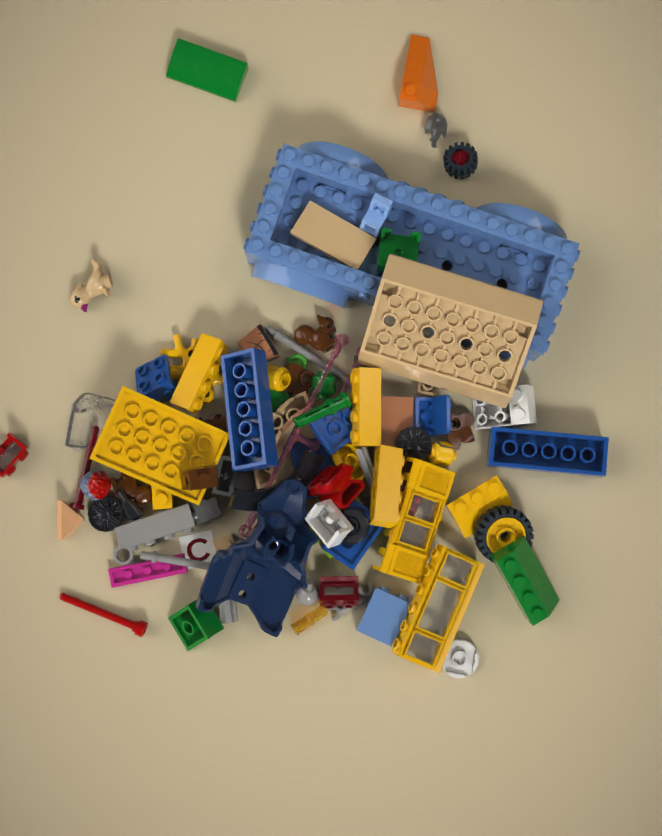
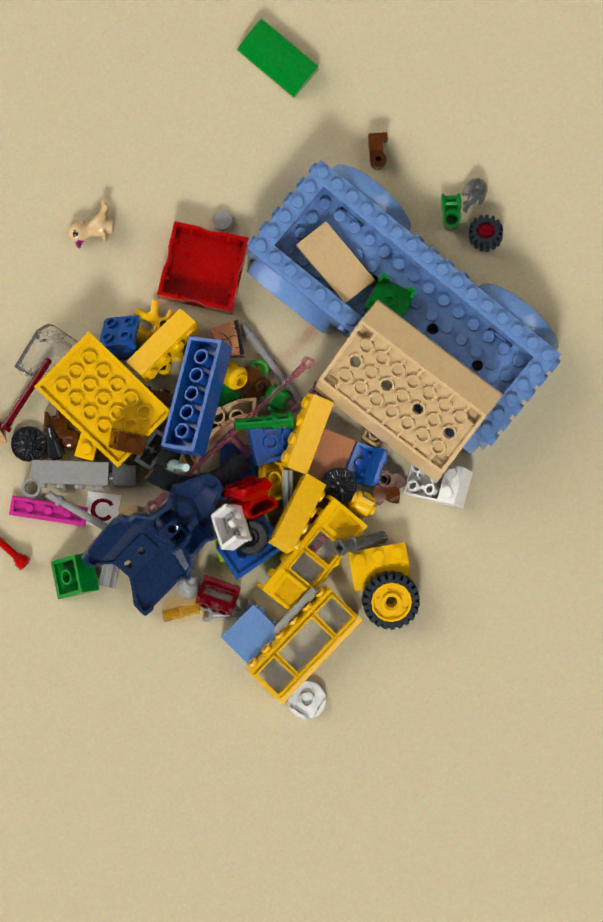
camera: 25 degrees right, 0 degrees up
(95, 484) = (29, 413): red piece -> none
(209, 288) = (203, 268): none -> red tile
(211, 238) = (222, 221): none -> light grey tile
(254, 484) = (176, 466): none -> light aqua bar
(318, 339) = (289, 353): reddish brown animal -> none
(332, 125) = (376, 155): none -> reddish brown leg
(376, 215) = (382, 258): light blue brick -> none
(417, 579) = (294, 610): none -> light grey bar
(419, 79) = (477, 139): orange wedge -> none
(419, 148) = (451, 208): none -> green piece
(450, 495) = (353, 543): none -> dark grey pin
(526, 580) = (396, 649): green slope -> none
(547, 452) = (461, 538): blue brick -> none

